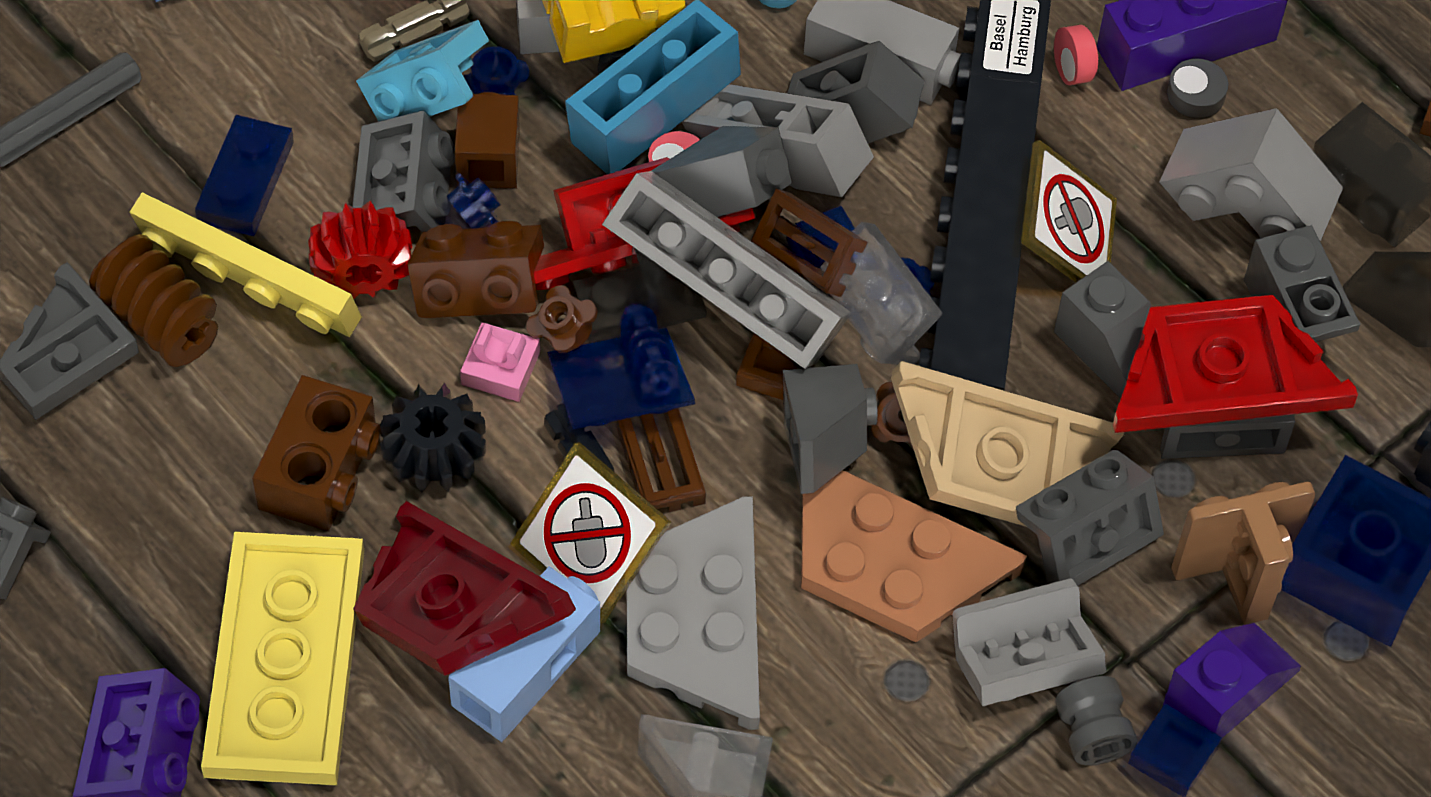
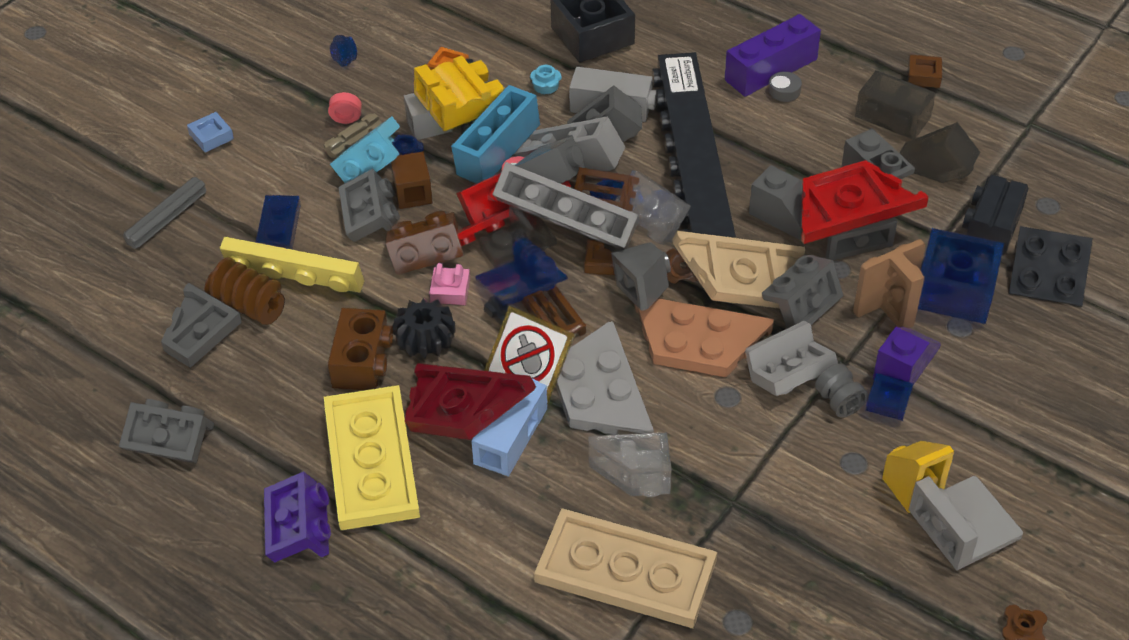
camera: 10 degrees left, 10 degrees down
(360, 249) = (357, 240): red gear -> none
(474, 202) = (412, 209): clear blue plate -> none
(572, 330) = (480, 256): reddish brown plate -> none
(1067, 215) = (738, 151): piece -> none
(1075, 54) = (716, 81): coral tile -> none
(1252, 168) = (830, 109): light grey brick -> none

